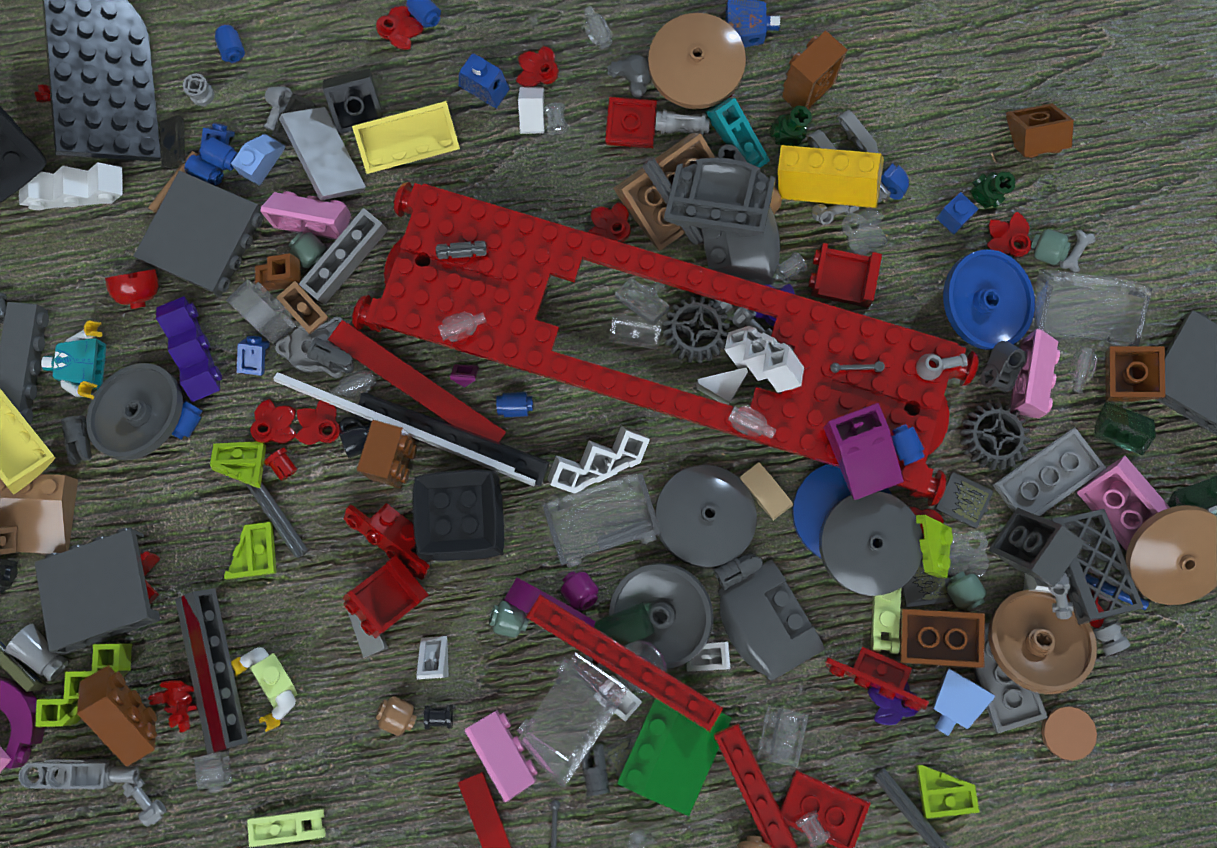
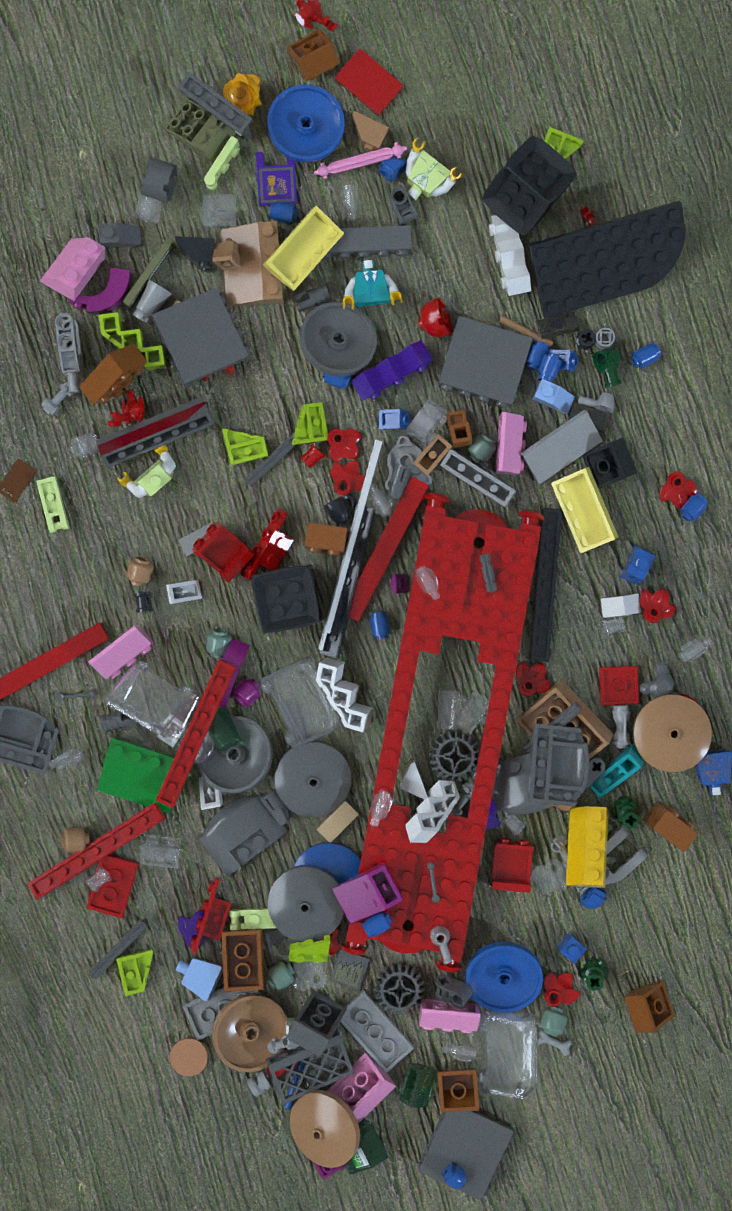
camera: 80 degrees right, 10 degrees up
(195, 111) = (591, 339): none -> black bush
(234, 87) = (607, 362): none -> dark green connector
(519, 199) = (545, 585): none -> black tile

